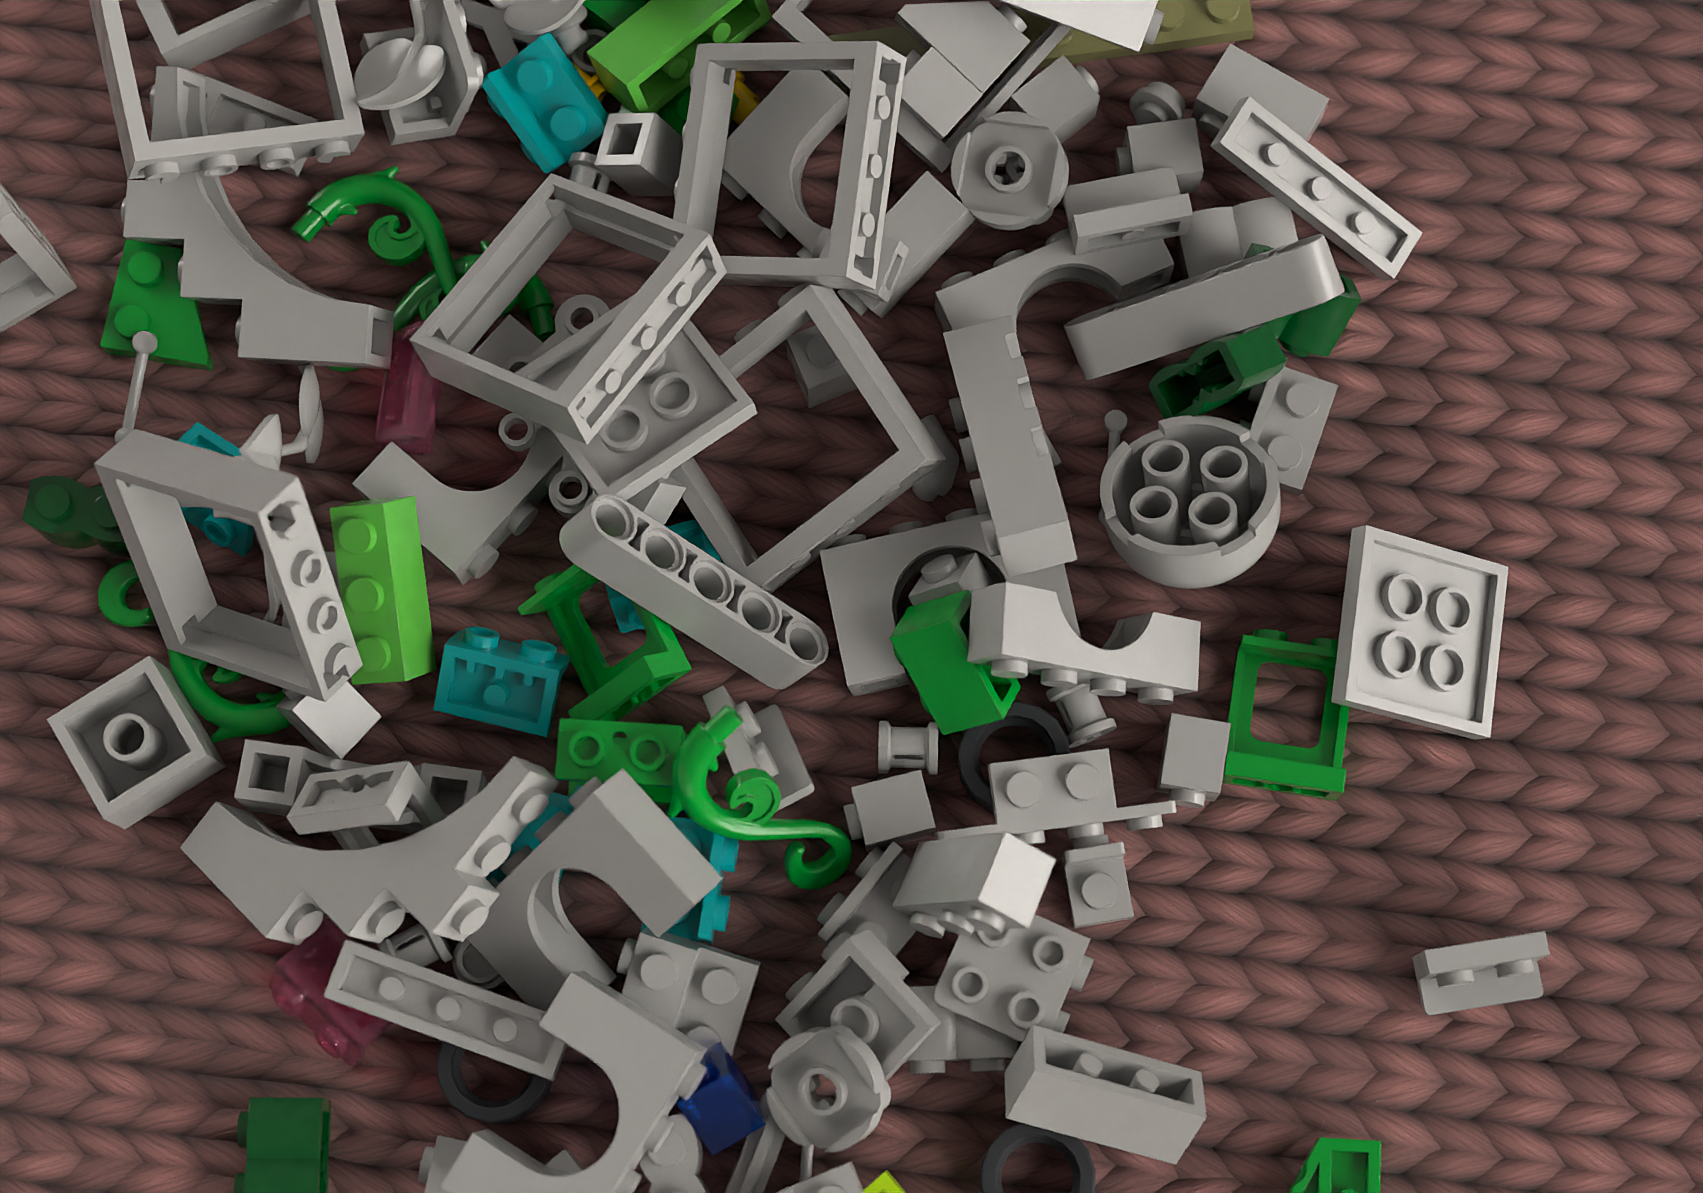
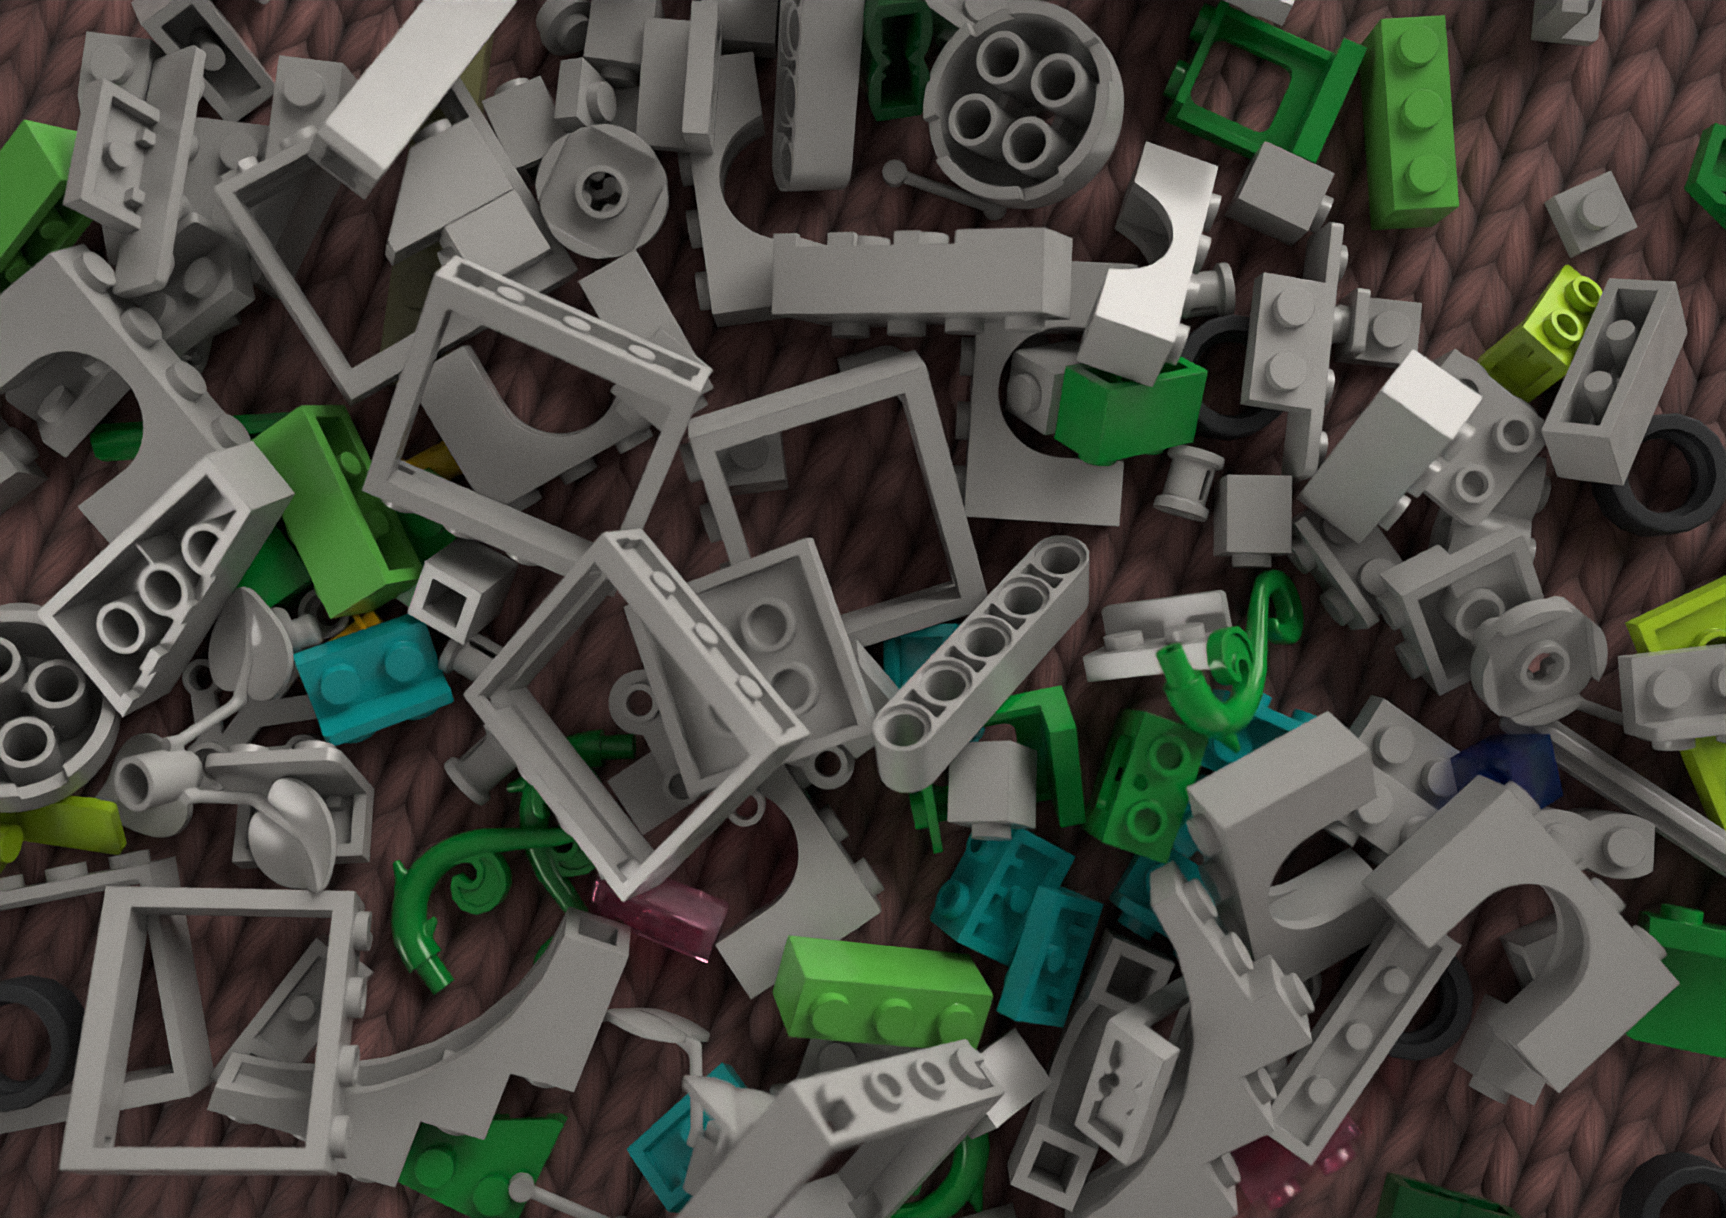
camera: 85 degrees left, 10 degrees up
(451, 728) = (1049, 957): none -> teal bracket
(489, 210) = (480, 768): none -> light grey bush
(586, 635) = (993, 789): none -> light grey brick
(1090, 144) = (589, 99): none -> light grey bracket
(1131, 1026) = (1547, 339): none -> lime bracket
(1265, 1056) = (1590, 214): none -> light grey plate
(1291, 854) = (1408, 123): none -> bright green brick

